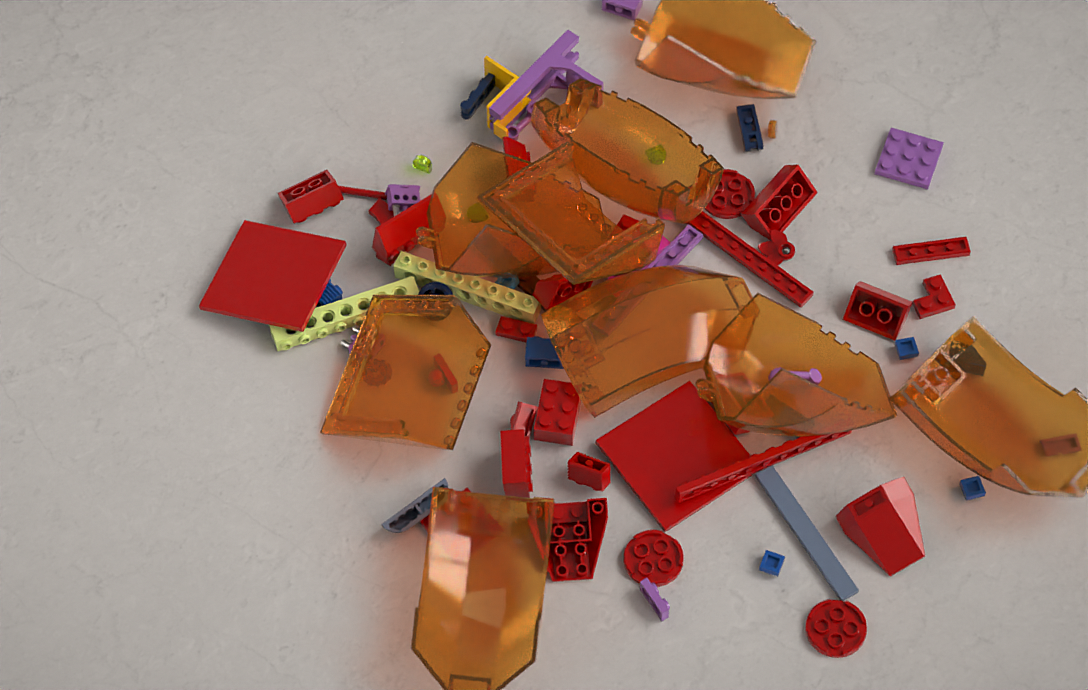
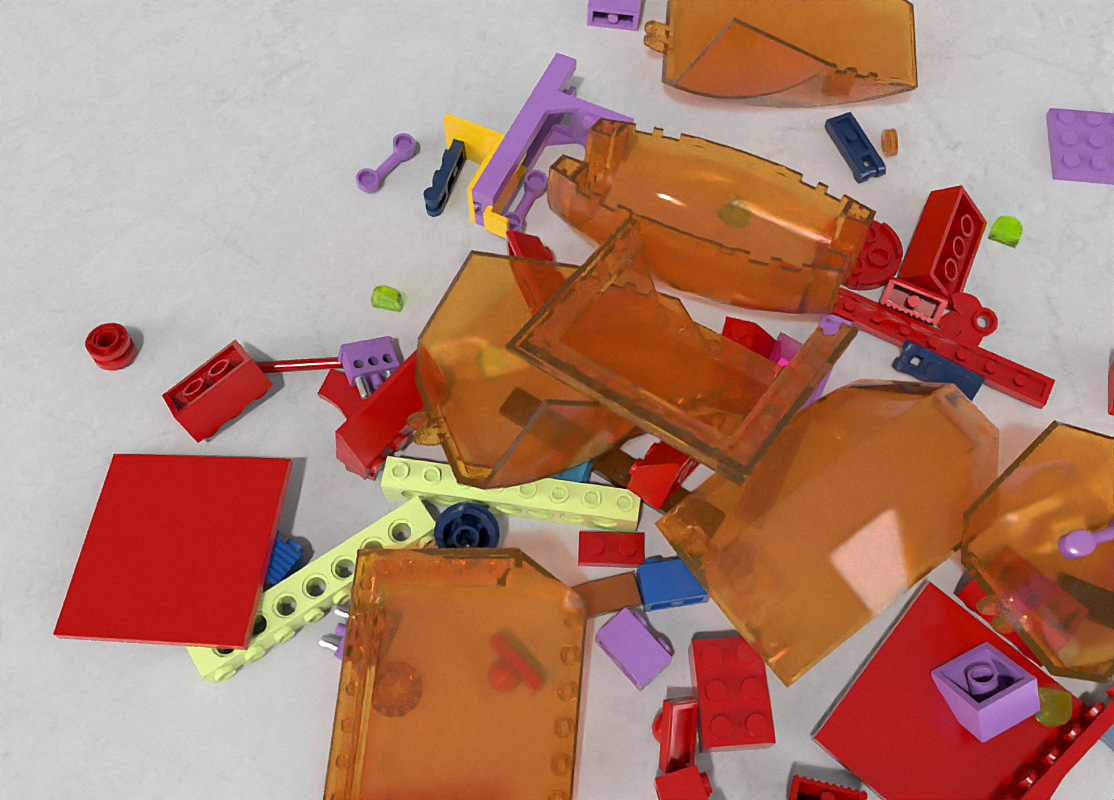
camera: 15 degrees left, 5 degrees up
(252, 159) = (110, 346): none -> red wheel
(456, 72) = (403, 150): none -> medium lavender bar
(506, 353) = (609, 595): none -> dark orange tile
(512, 379) = (634, 648): none -> medium lavender brick
(696, 437) = (987, 691): none -> medium lavender slope
(732, 453) = (1054, 707): none -> clear neon green tile
(744, 228) = (914, 300): none -> brick
(753, 278) = (938, 369): none -> dark blue plate
(827, 200) = (1006, 231): none -> clear neon green tile

